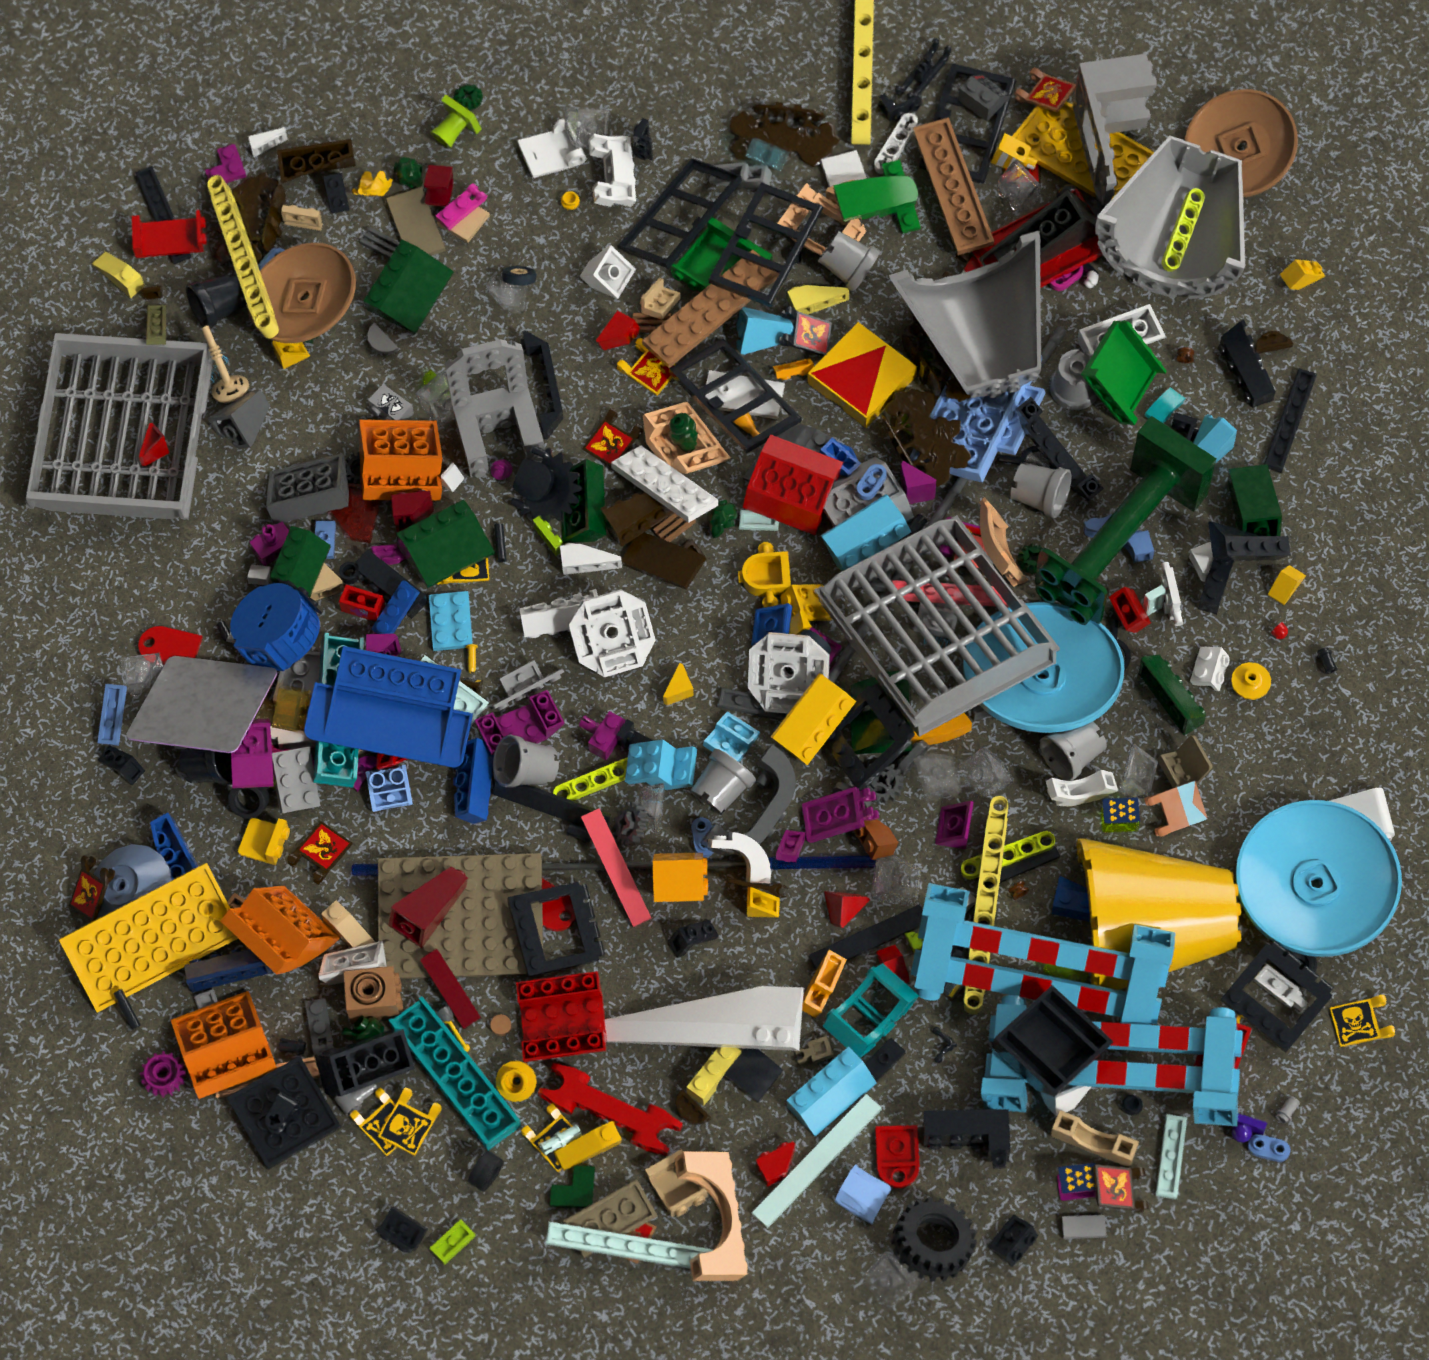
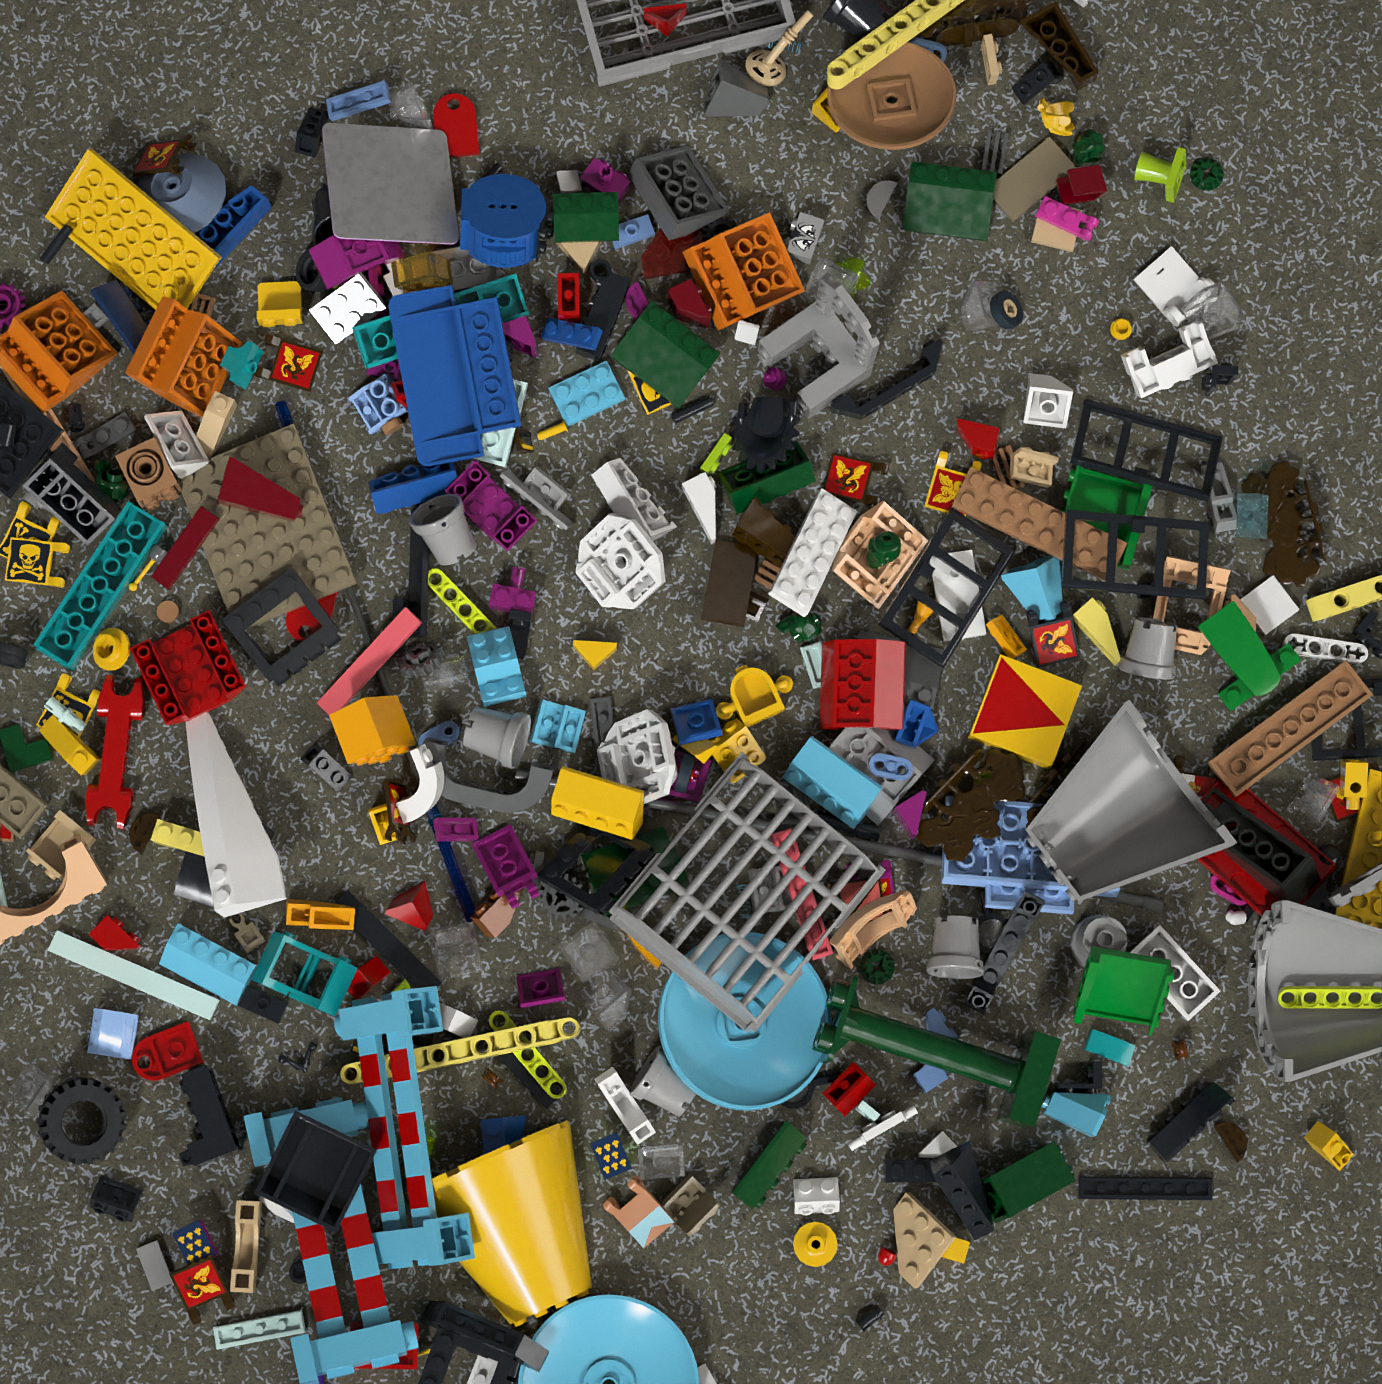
camera: 60 degrees right, 15 degrees up
(304, 887) = (242, 363): none -> teal brick
(413, 783) = (392, 426): none -> medium nougat tile
(1236, 959) = (486, 1332): none -> black slope
(1274, 599) = (919, 1239): none -> tan plate

